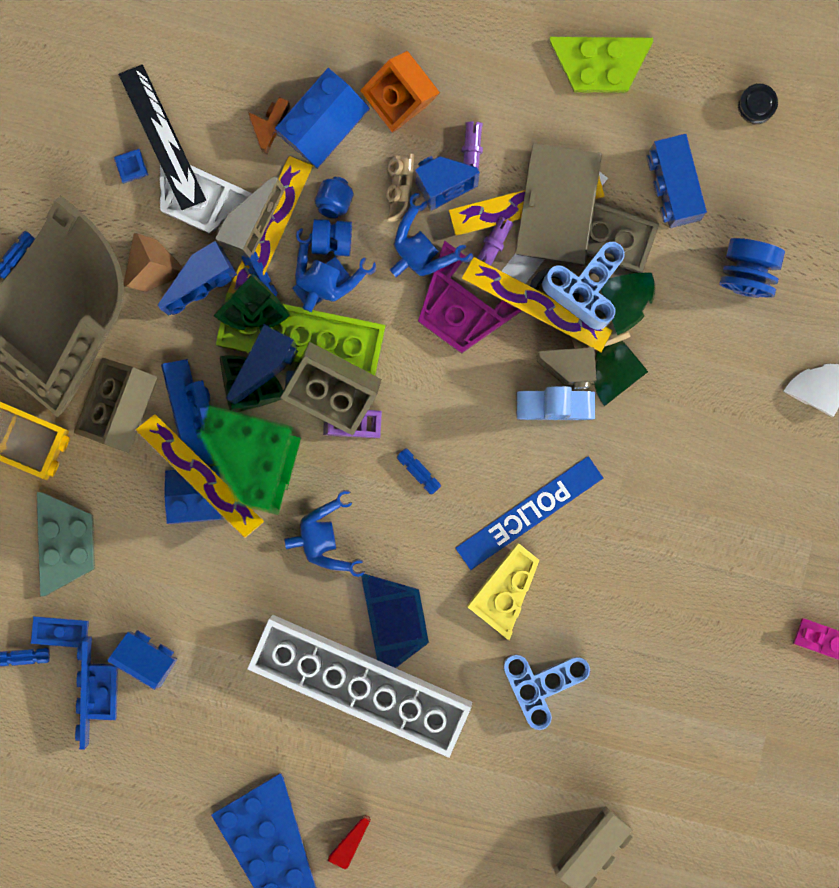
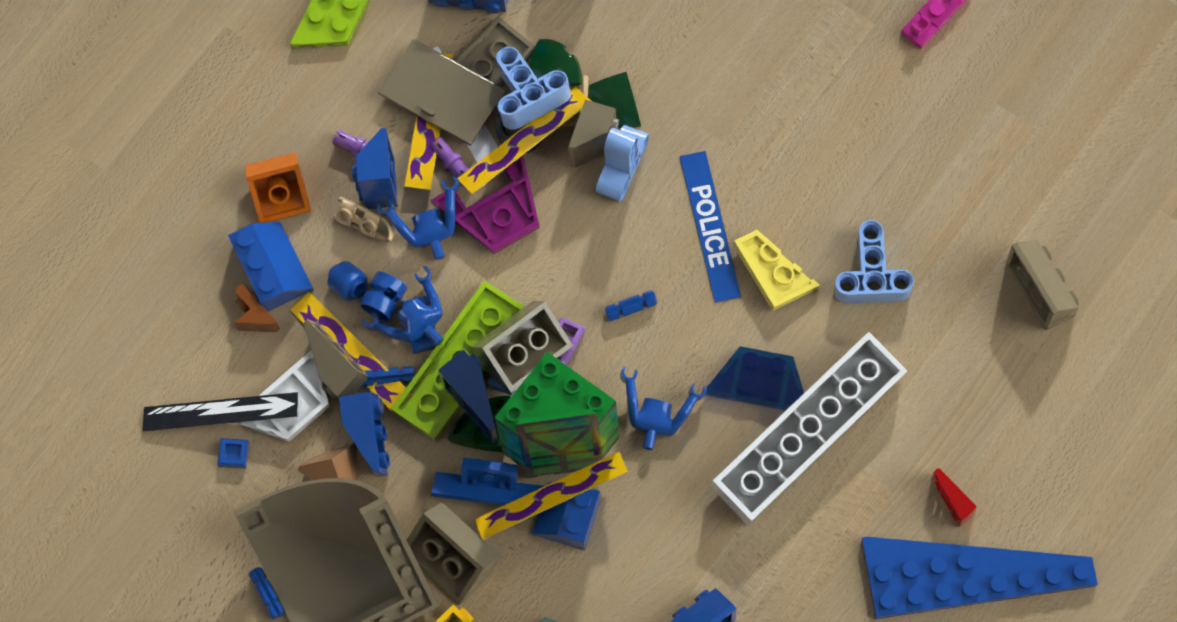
camera: 65 degrees left, 15 degrees down
(252, 306) = (414, 389): dark green brick -> none

